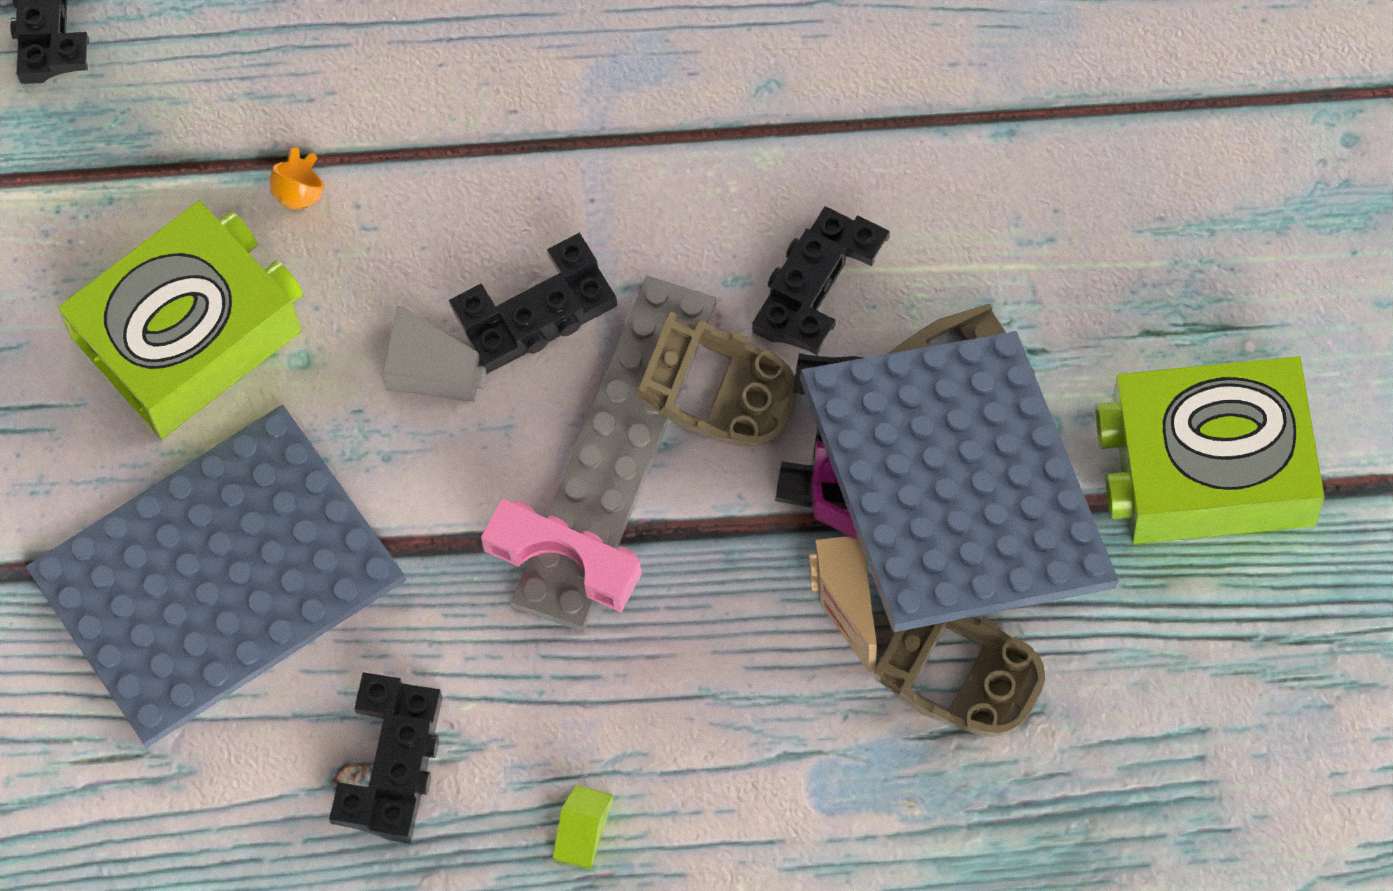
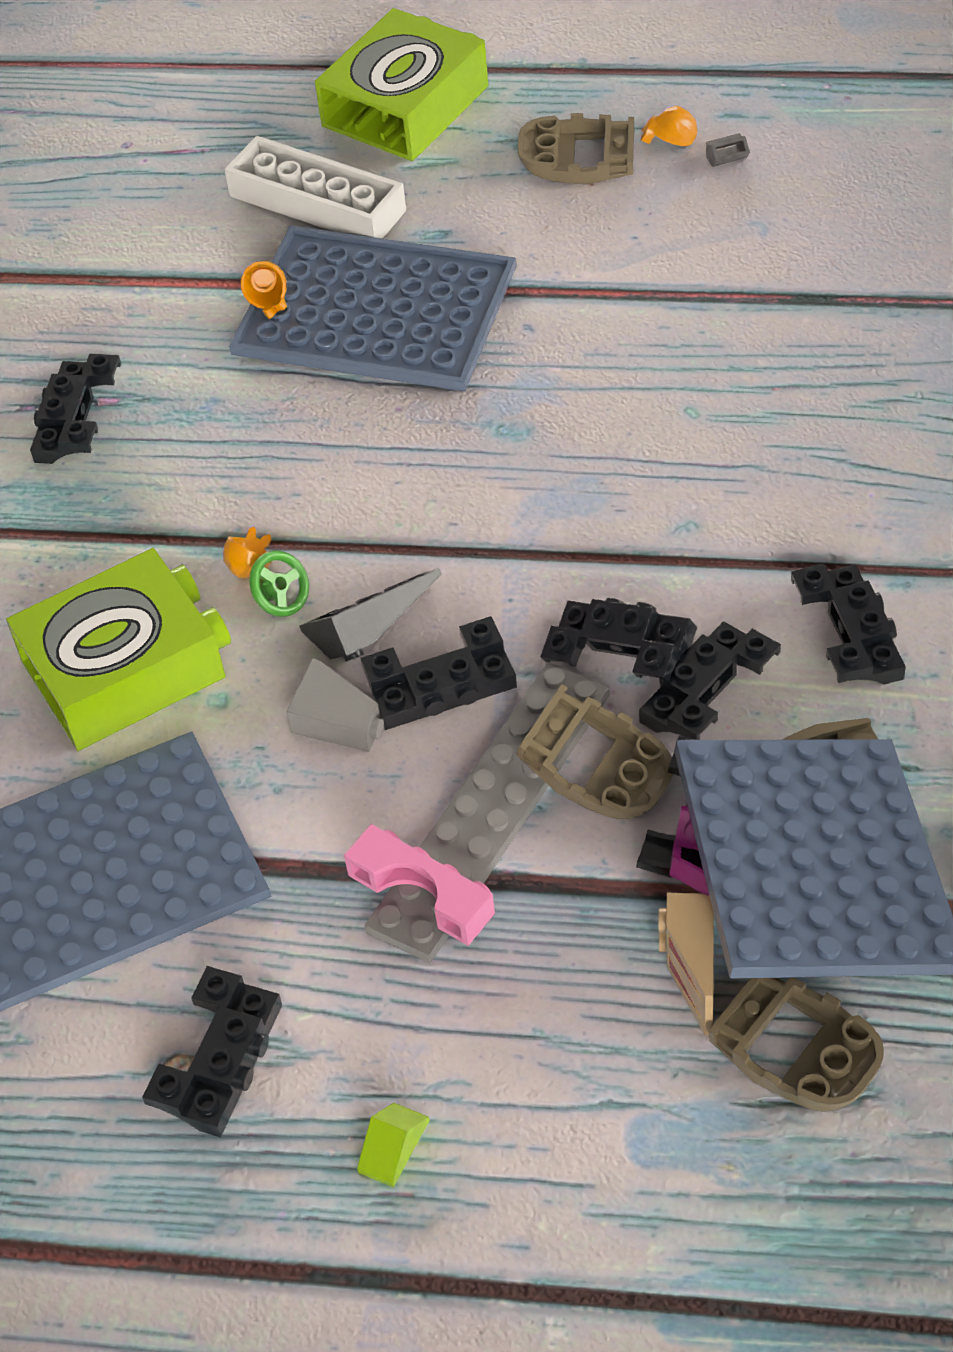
camera: 10 degrees right, 15 degrees down
(336, 217) = (264, 589): none -> bright green piece
(438, 255) = (360, 625): none -> wedge
(722, 232) = (621, 630): none -> black bracket
(967, 188) = (859, 620): none -> black bracket

